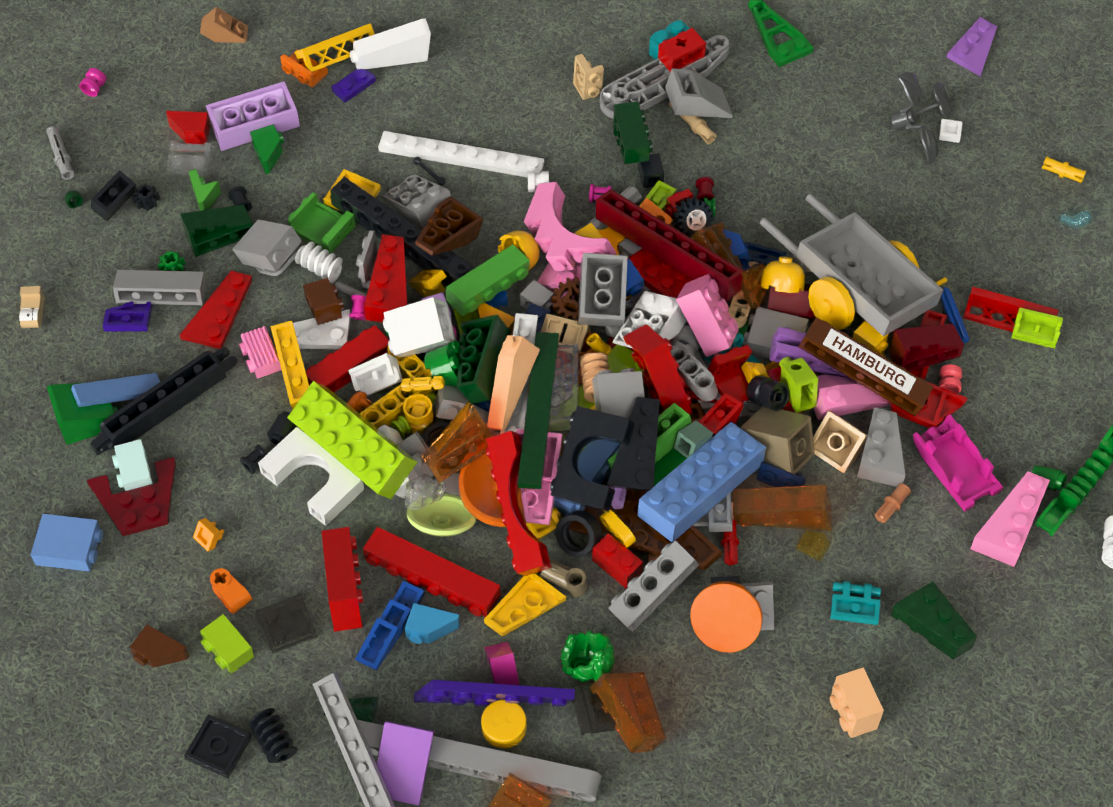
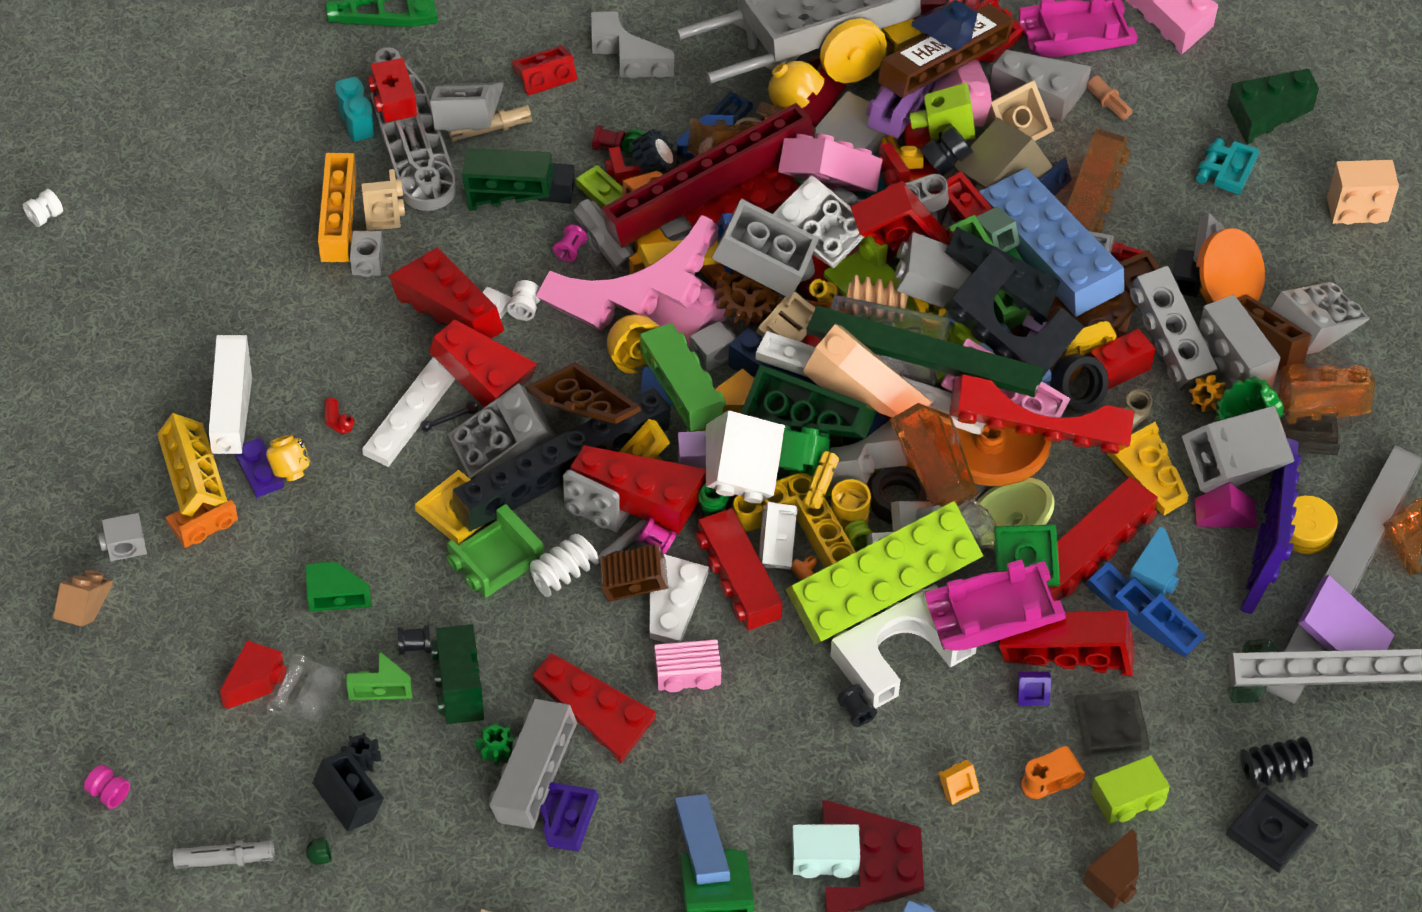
camera: 75 degrees left, 5 degrees down
(163, 399) = (734, 792): black hinge -> none
(239, 115) = (274, 587): lavender slope -> none
(268, 247) = (523, 612): light grey brick -> none
(274, 33) = (123, 537): none -> light grey brick
(280, 428) = (819, 664): black brick -> none
(290, 361) = (733, 625): yellow fence -> none
(298, 564) = (1033, 688): none -> dark purple tile
(343, 515) = (993, 606): none -> dark pink piece
(358, 92) = (288, 457): none -> yellow head
(394, 526) = (1030, 544): none -> green tile
(405, 109) = (334, 420): none -> red arm
(466, 168) = (479, 362): none -> red wedge
(517, 135) = (446, 293): none -> red wedge
(541, 650) = (1238, 449): none -> light grey slope
(545, 85) = (366, 253): none -> light grey brick
(560, 58) = (337, 207): none -> light orange brick
(607, 626) = (1200, 396): none -> light orange gear
(650, 635) = (1237, 343): none -> light grey brick
(682, 659) = (1285, 337): none -> reddish brown slope
(719, 696) = (1321, 312): none -> light grey slope
(756, 136) = (545, 69): none -> red bracket
(789, 183) = (636, 55): none -> light grey arch
(813, 545) = (1140, 183): clear yellow slope -> none
(875, 354) = (948, 23): none -> dark blue slope

